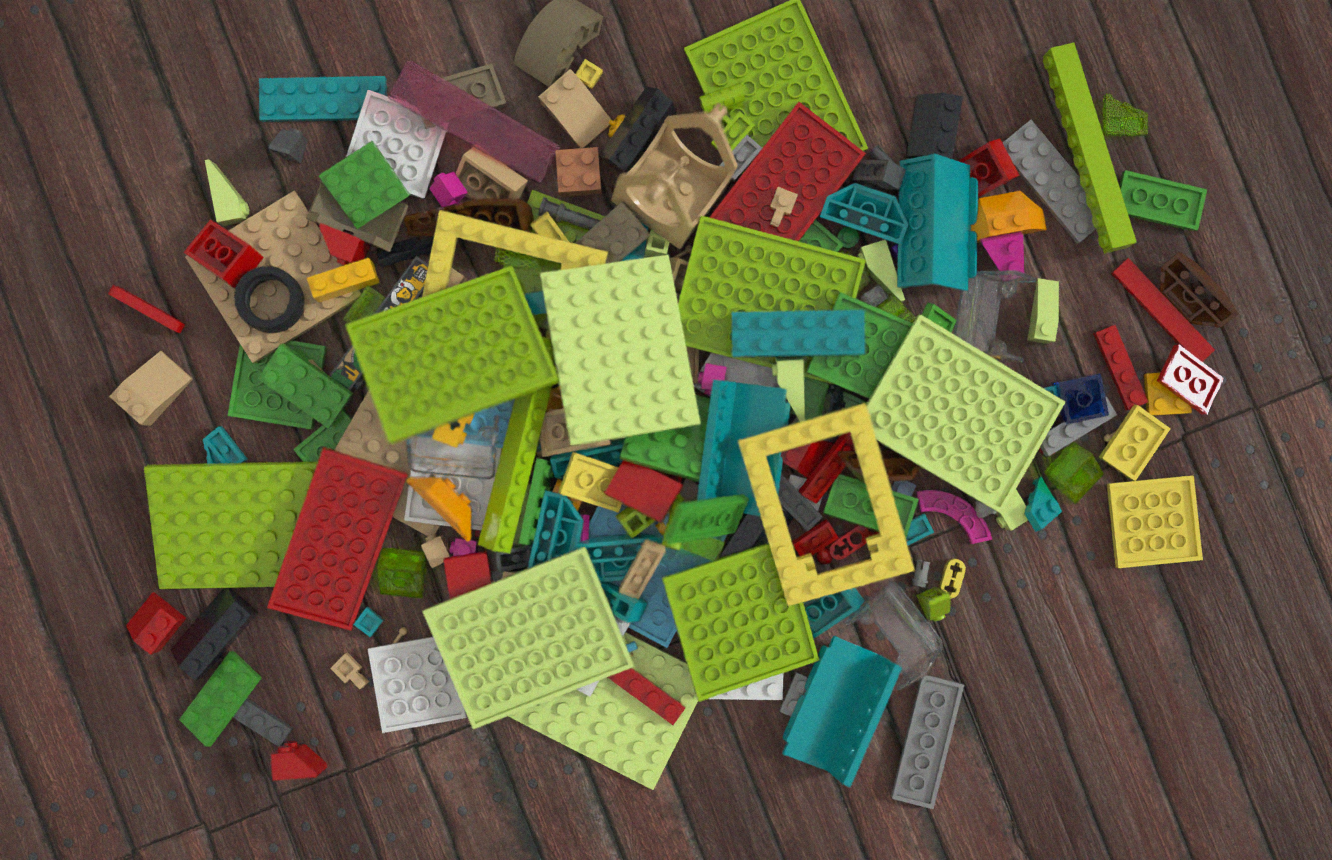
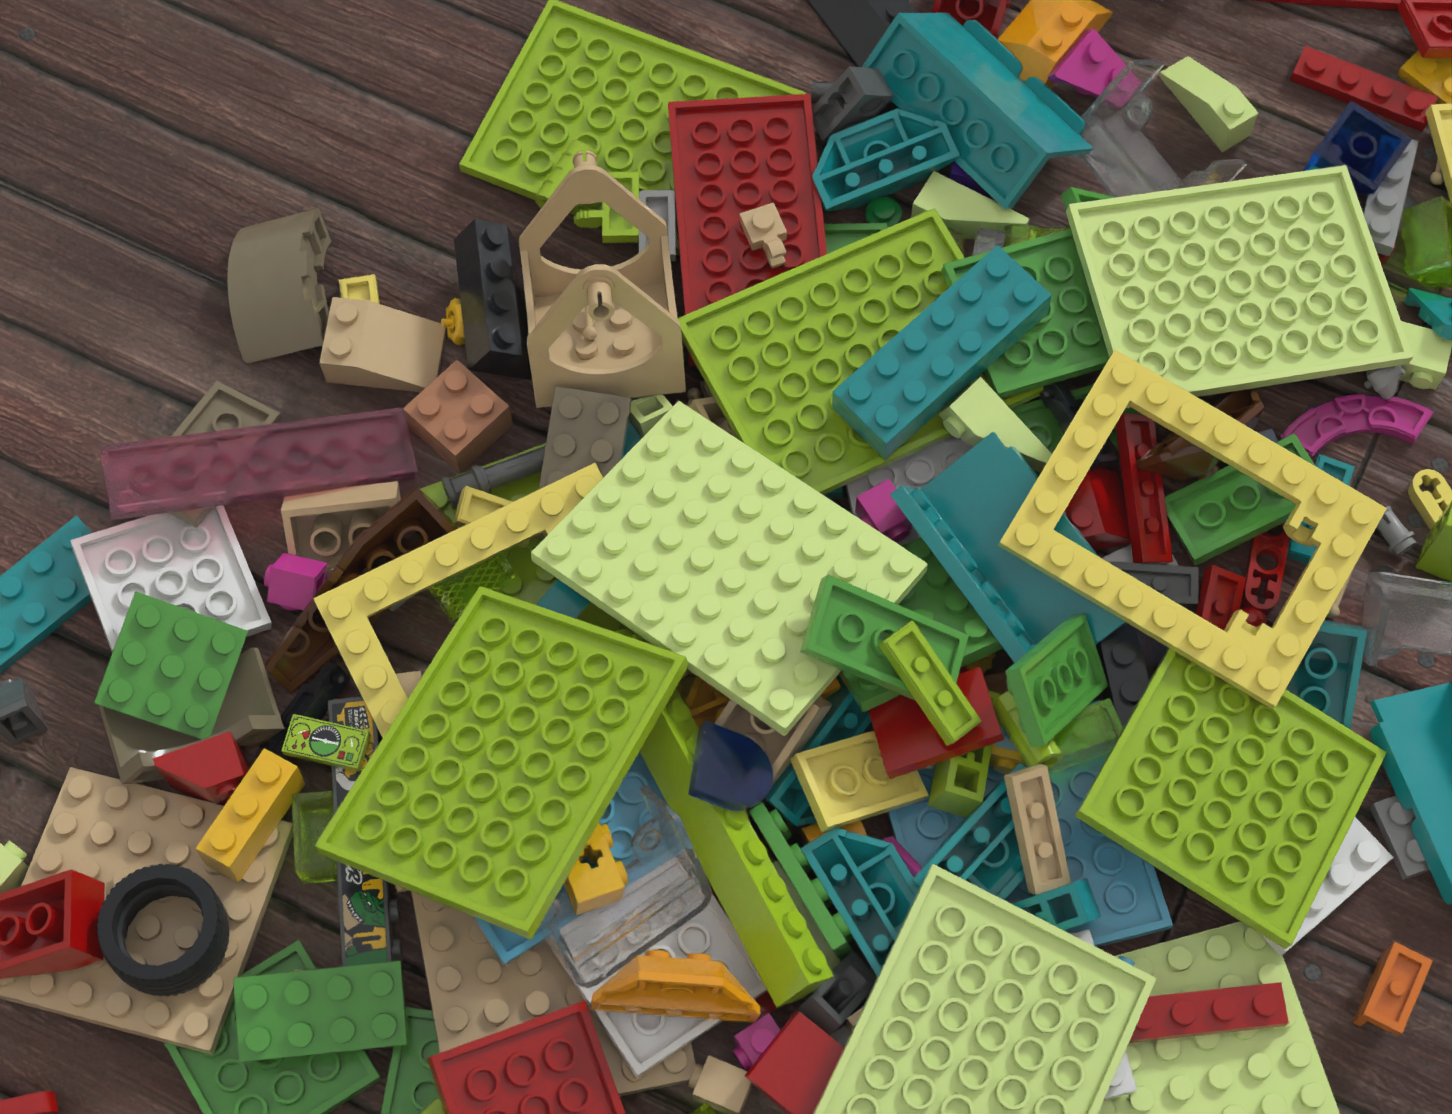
camera: 40 degrees left, 20 degrees down
(399, 275) = (326, 743): none -> lime tile
(540, 437) = (729, 769): none -> tile
(645, 444) = (851, 624): none -> bright green plate
(648, 476) = (929, 683): none -> lime tile
(727, 749) = (1393, 989): none -> orange panel

